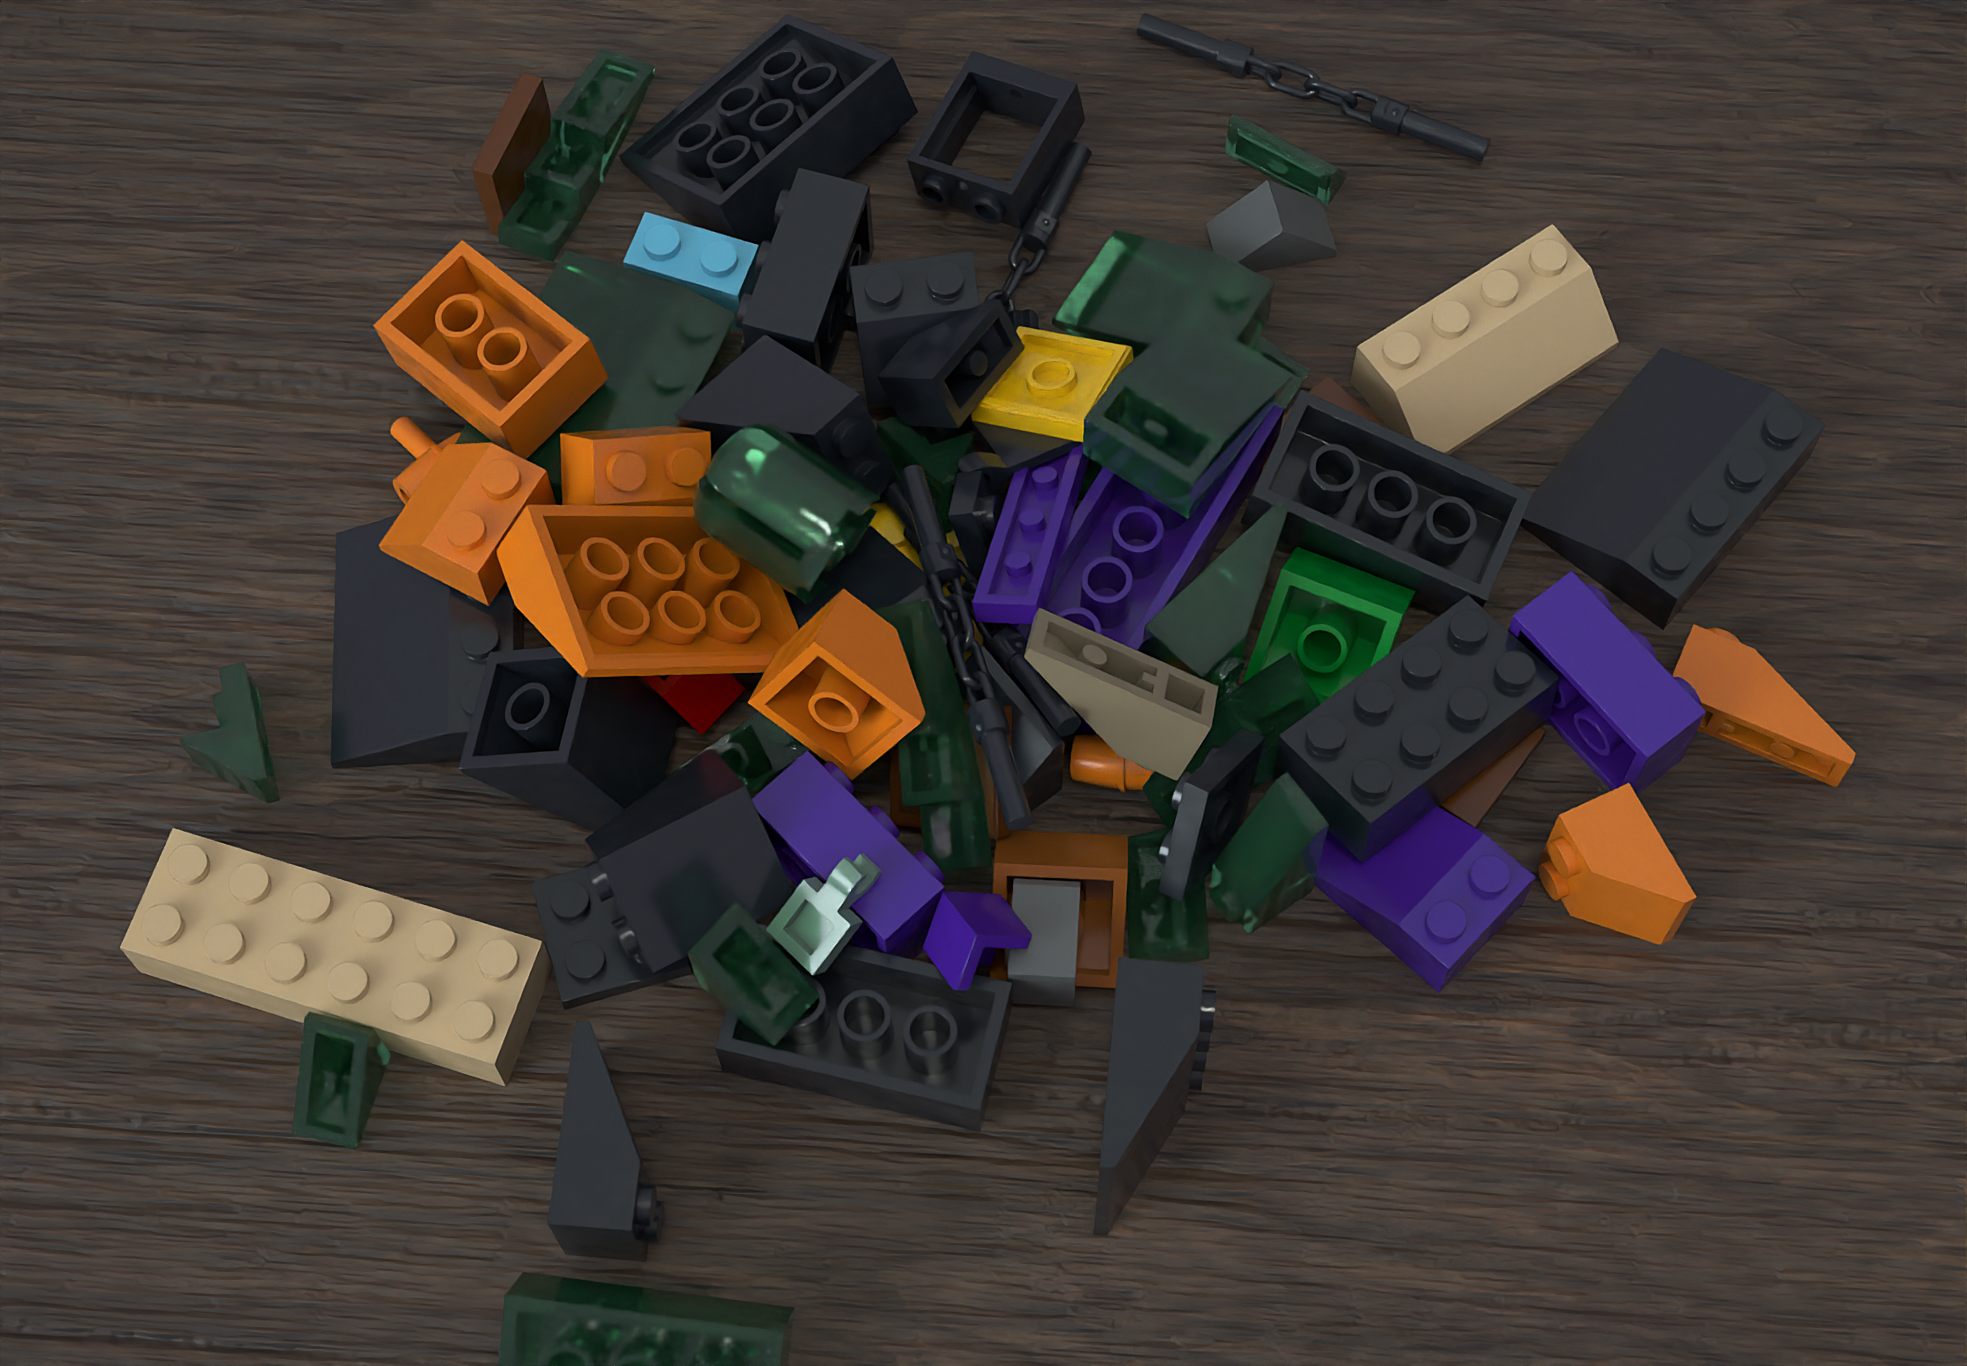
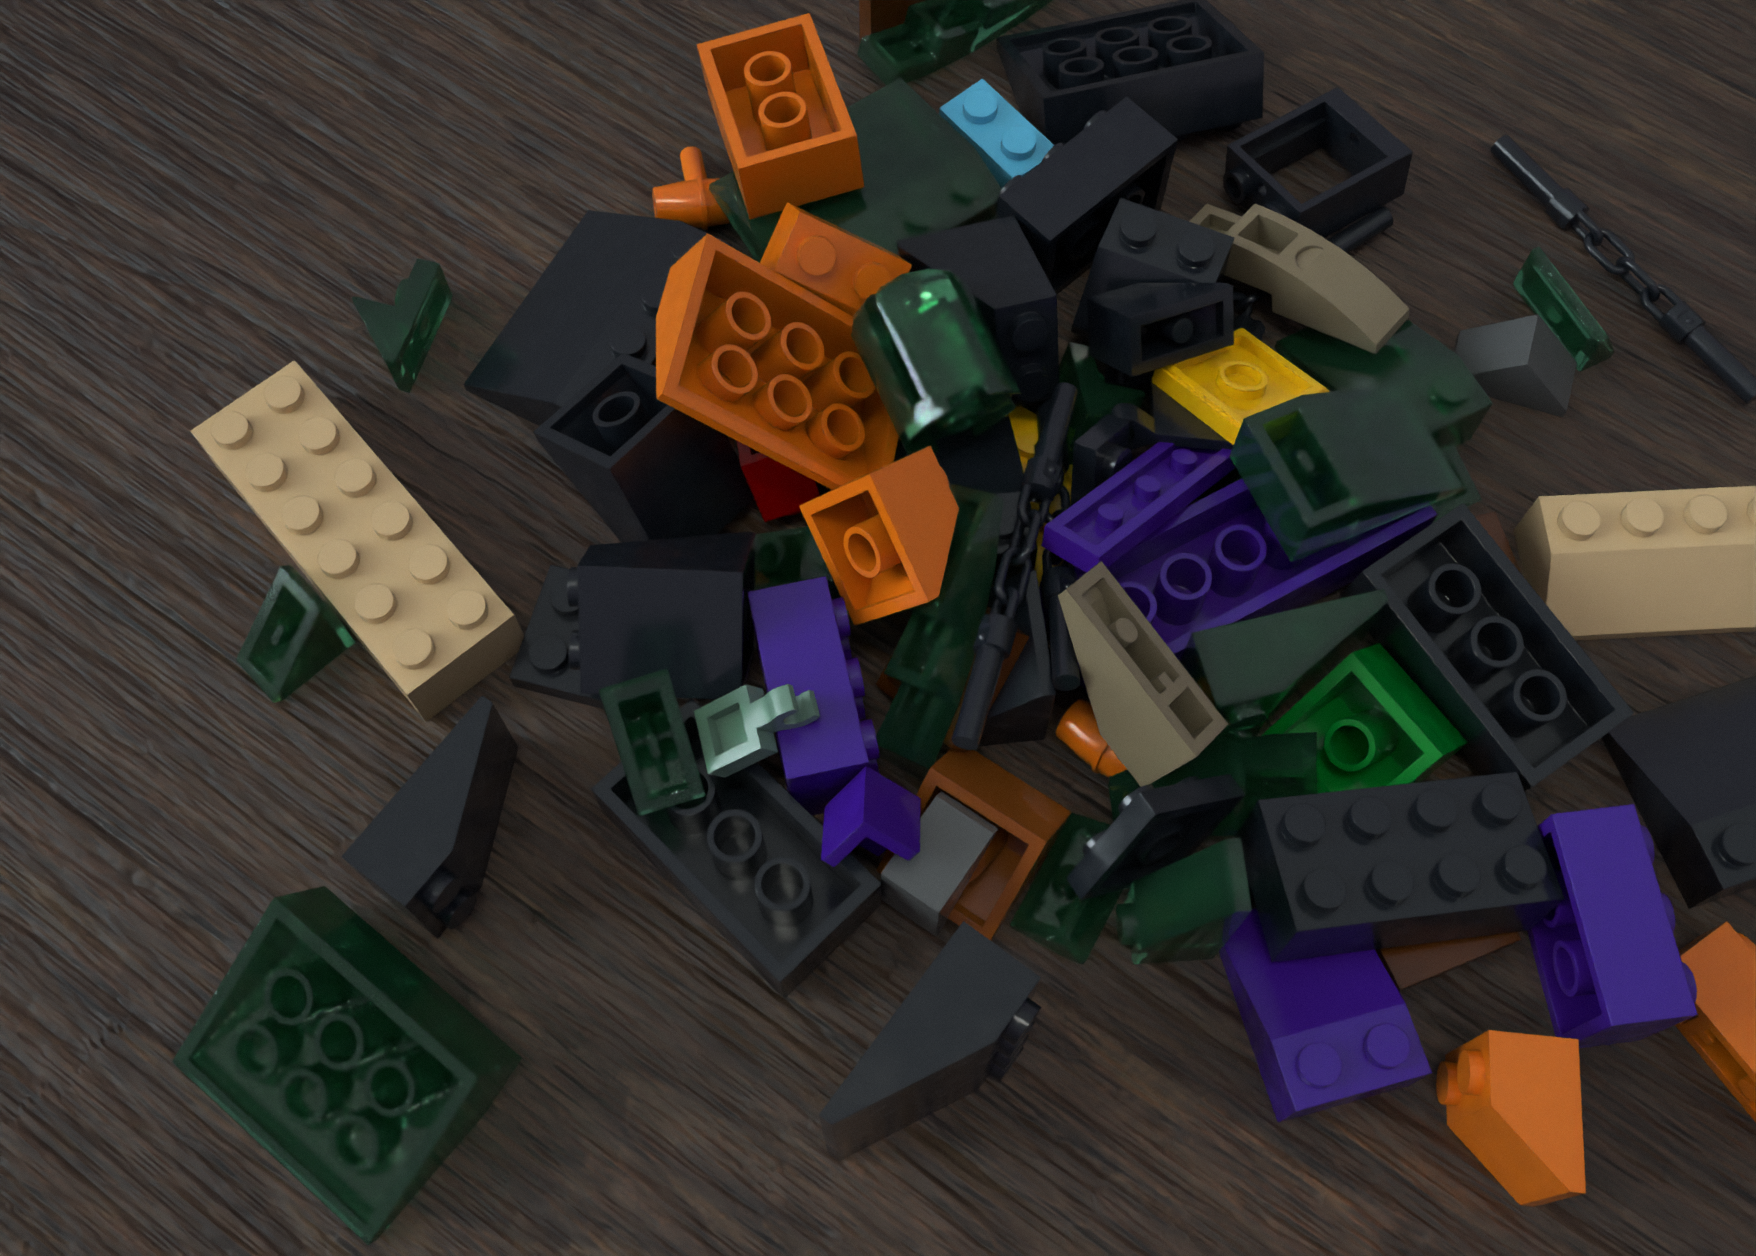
camera: 30 degrees right, 0 degrees up
(465, 514) = (667, 225): orange slope -> none
(1046, 247) = (1308, 276): none -> dark tan slope

